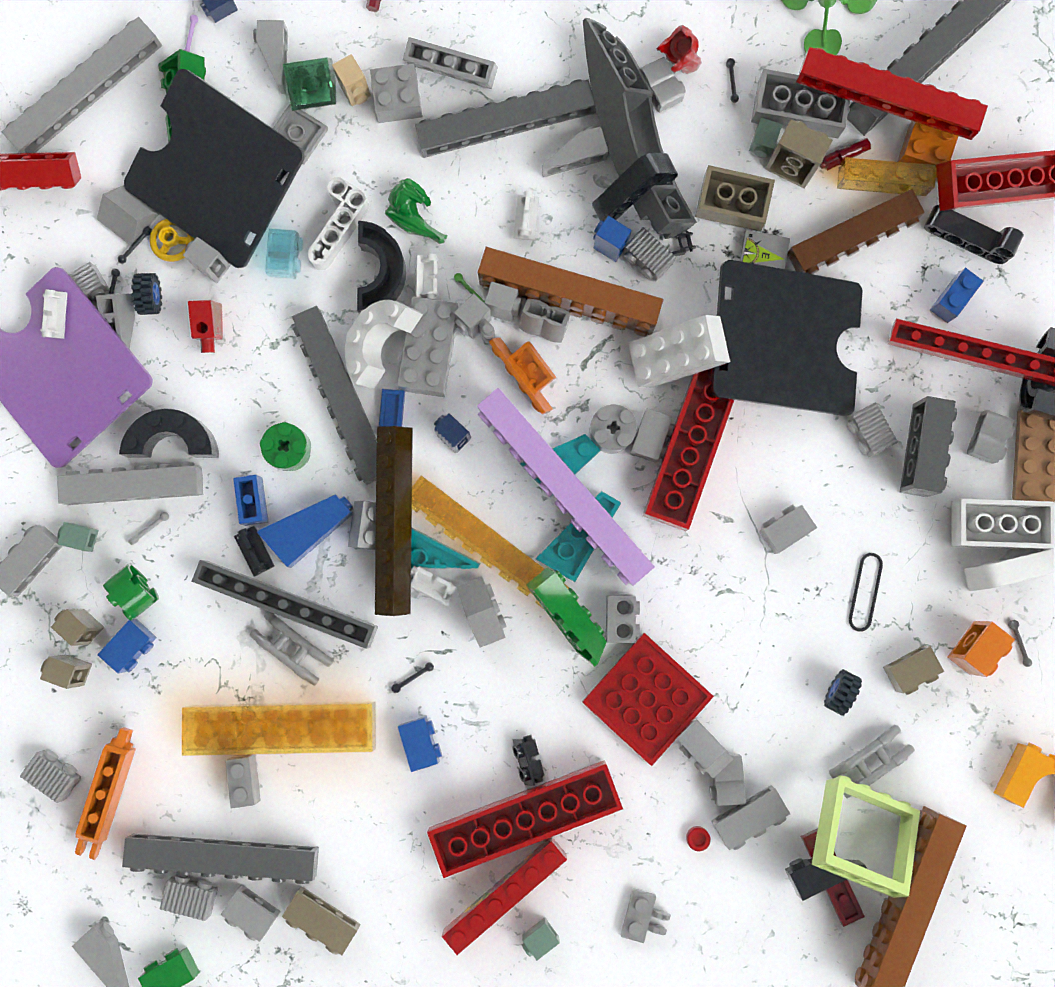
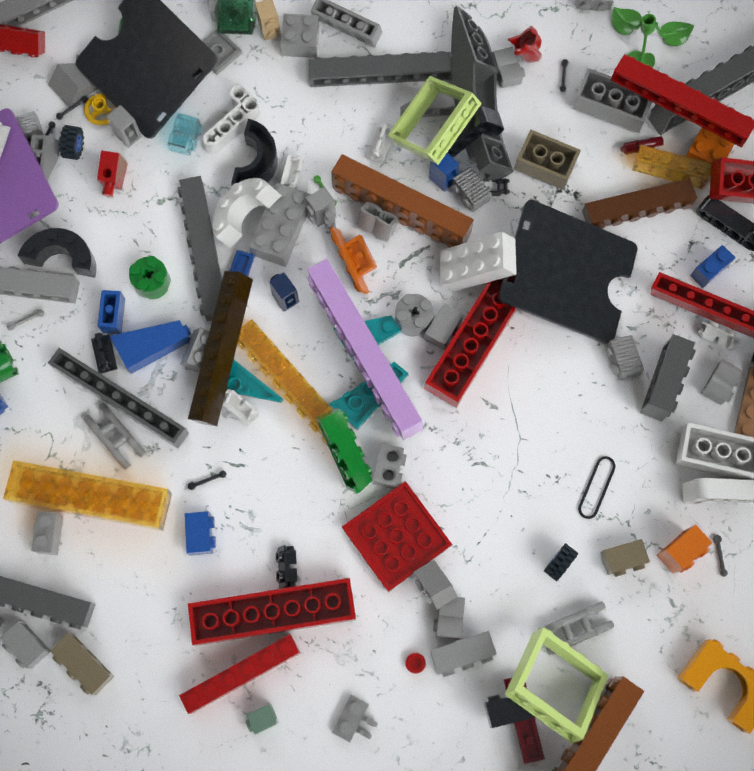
camera: 10 degrees right, 10 degrees down
(404, 210) = (286, 121): green hair -> none
(482, 611) = (274, 434): light grey brick -> none
(503, 302) = (347, 200): light grey brick -> none
(616, 188) = (450, 130): none -> yellowish green window
(764, 249) = (565, 202): light grey tile -> none
(765, 137) = (580, 120): sand green brick -> none
(788, 528) = (541, 421): light grey brick -> none
(798, 153) = (602, 133): dark tan brick -> none
(985, 380) = (726, 337): none -> white hinge

